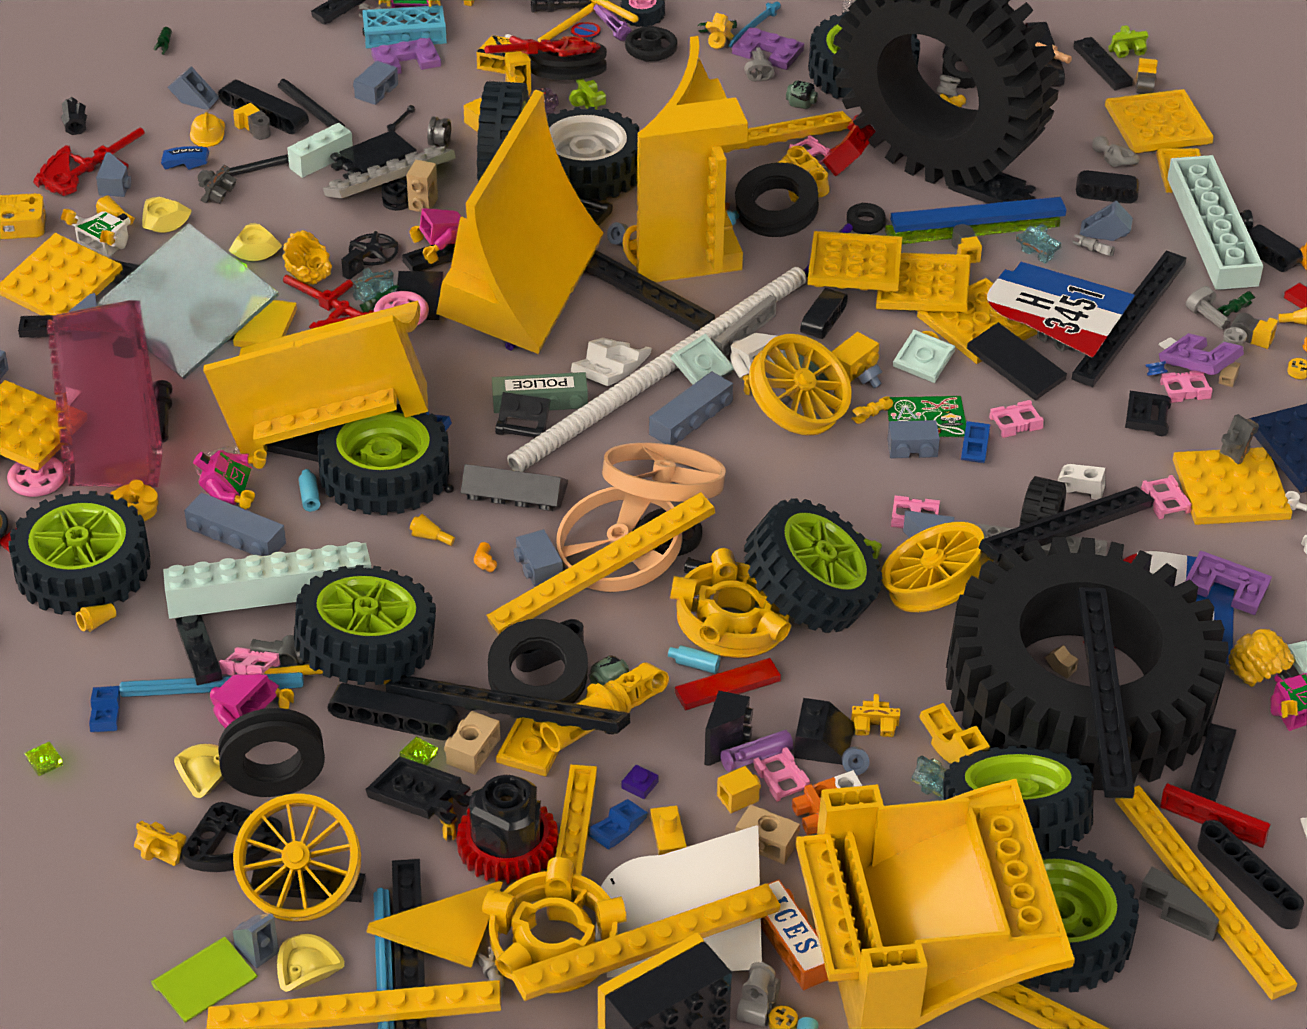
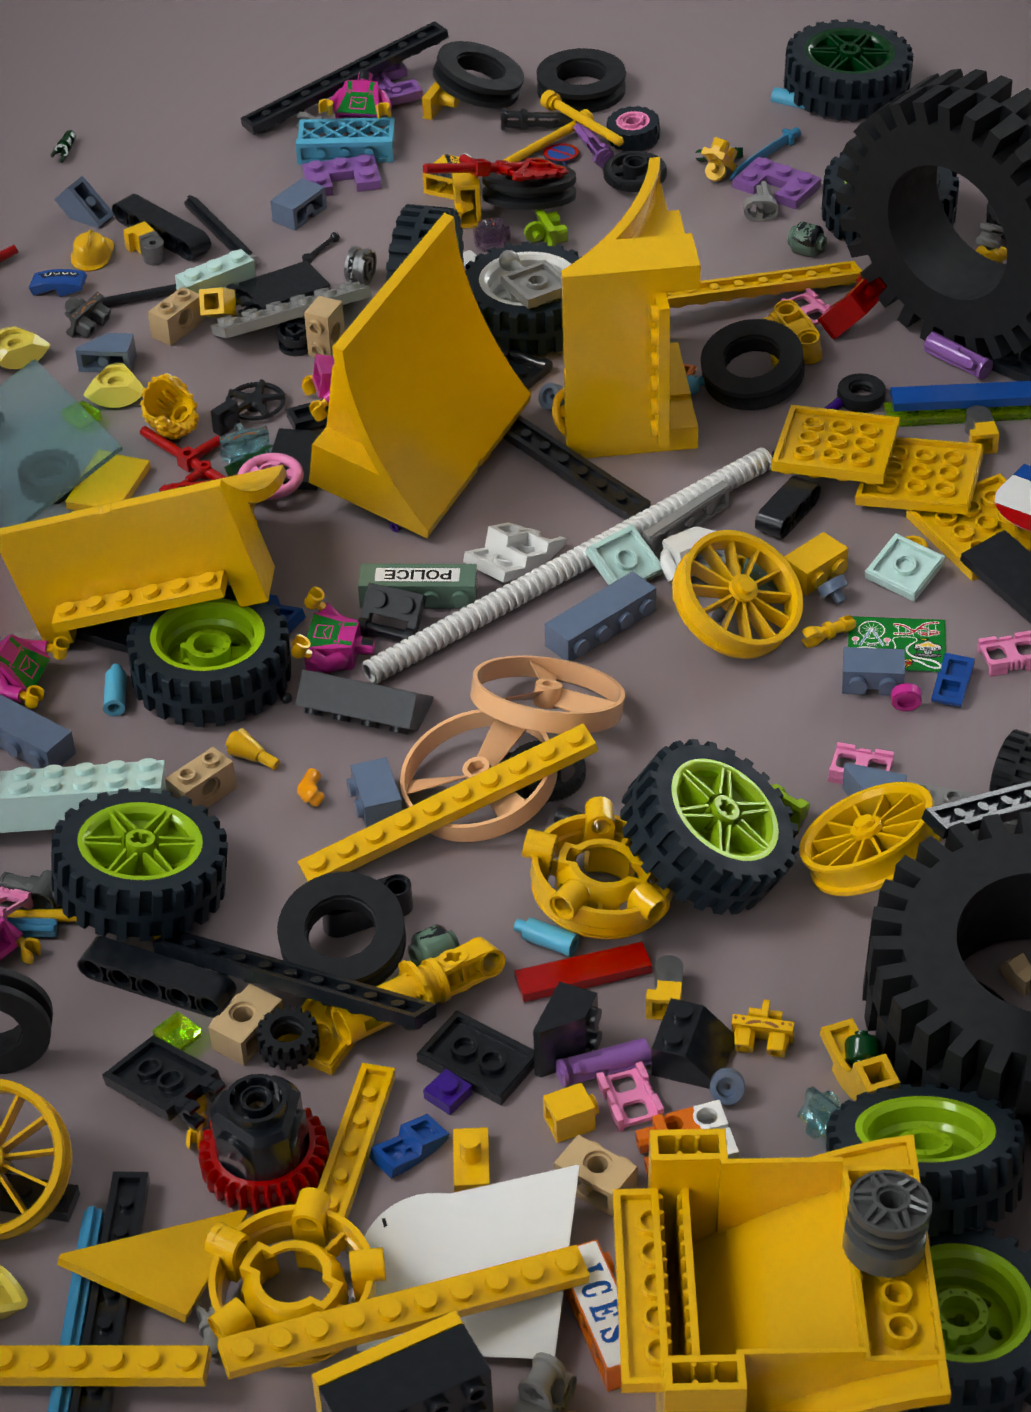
camera: 10 degrees right, 0 degrees up
(239, 214) = (105, 351): none -> sand blue slope
(293, 181) = (175, 316): none -> tan brick
(327, 168) = (217, 302): none -> yellow brick
(401, 554) = (203, 778): none -> tan brick
(479, 438) = (331, 639): none -> torso
(509, 761) = (290, 1052): none -> black tyre
(593, 141) = (530, 284): none -> light grey plate
(659, 752) = (479, 1056): none -> black tile
(795, 690) = (668, 984): none -> leg
(937, 184) = (958, 355): none -> medium lavender piece
(942, 457) = (906, 697): none -> dark pink tile
(953, 723) = (861, 1047): none -> dark green piece
(1011, 841) = (887, 1223): none -> dark grey wheel

